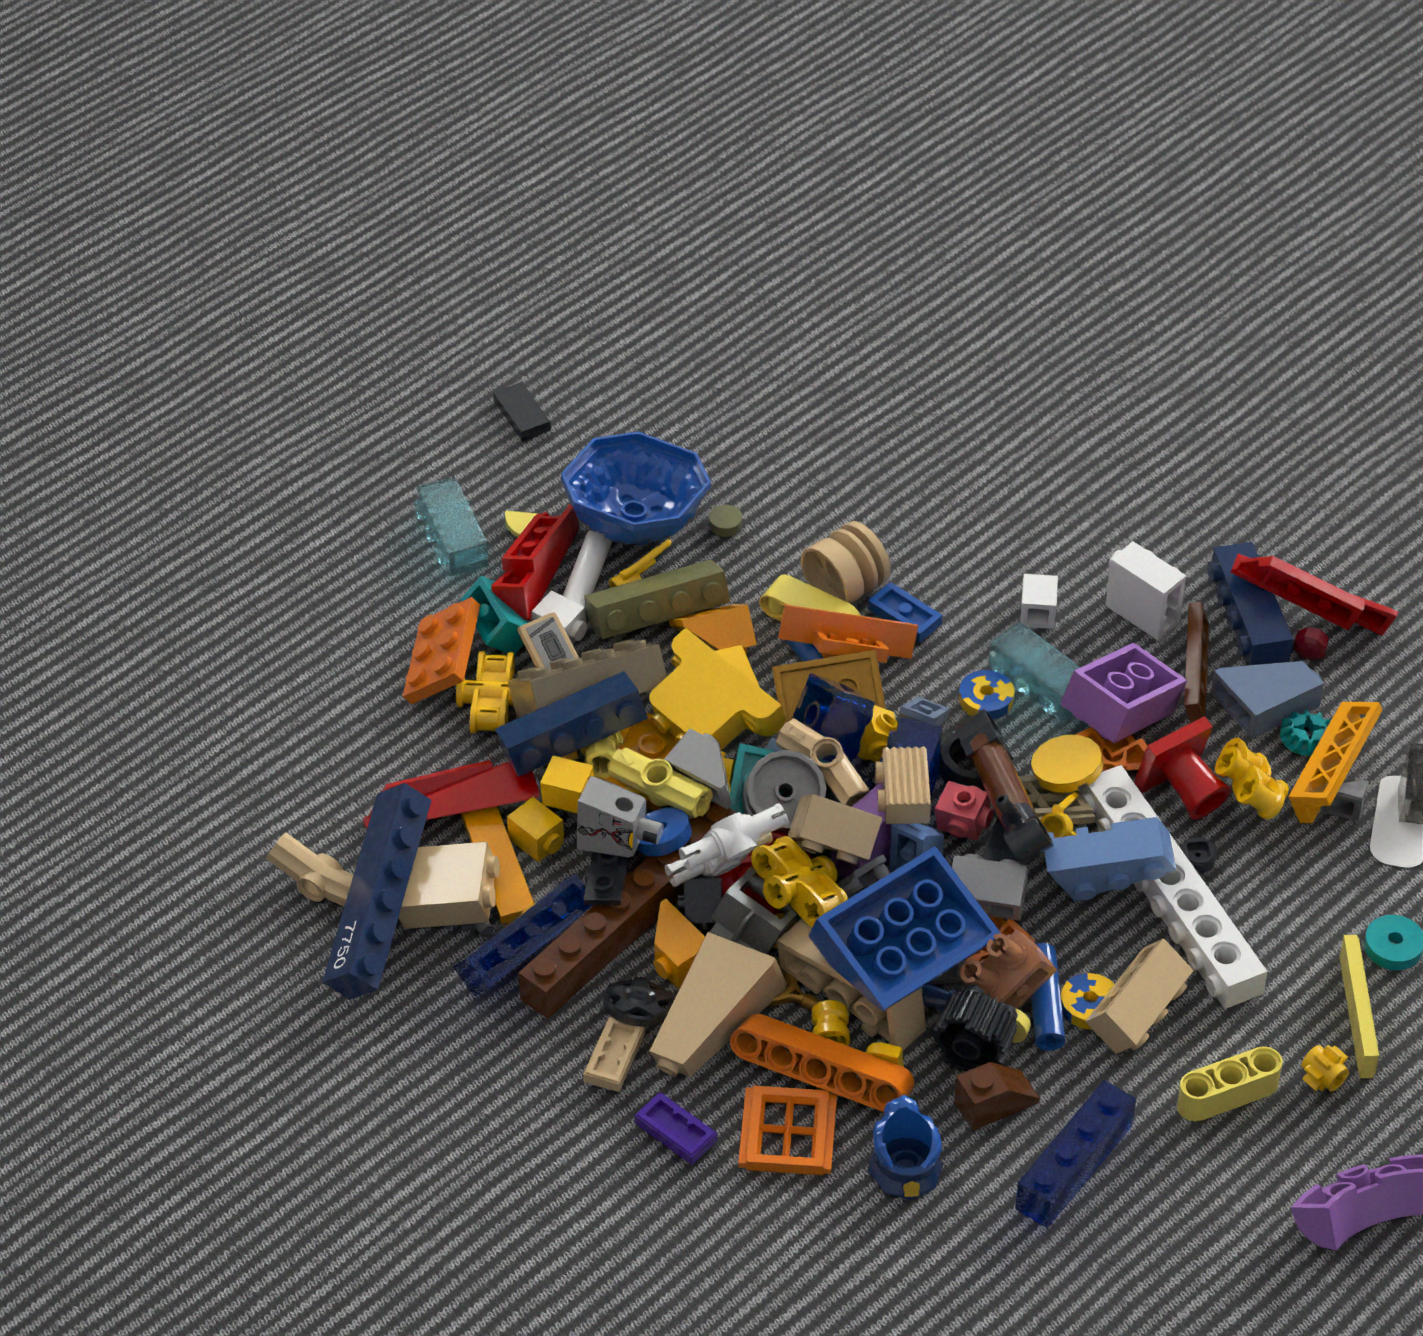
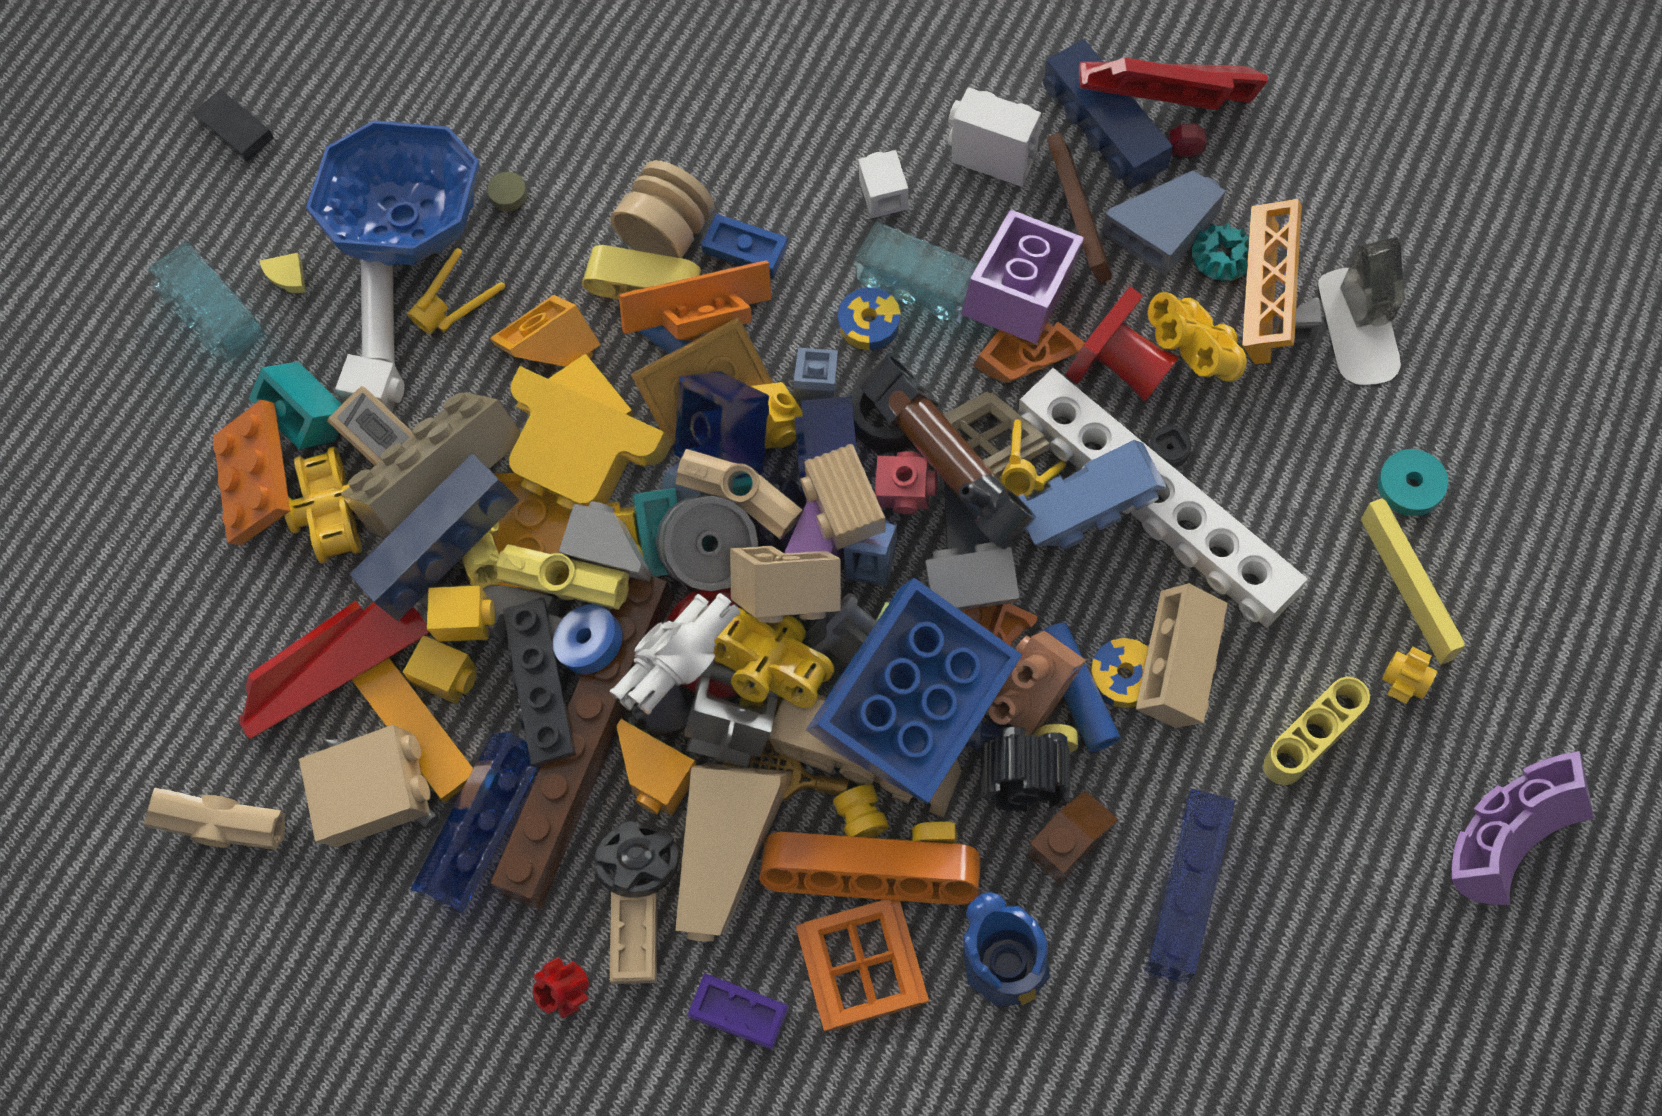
camera: 15 degrees left, 20 degrees up
(377, 891) = (288, 831): dark blue brick -> none
(534, 560) = (315, 322): red wedge -> none
(543, 1065) = (560, 987): none -> red gear
(613, 820) = (532, 659): light grey torso -> none
(657, 599) = (469, 322): olive brick -> none
(1067, 763) = (996, 386): yellow tile -> none

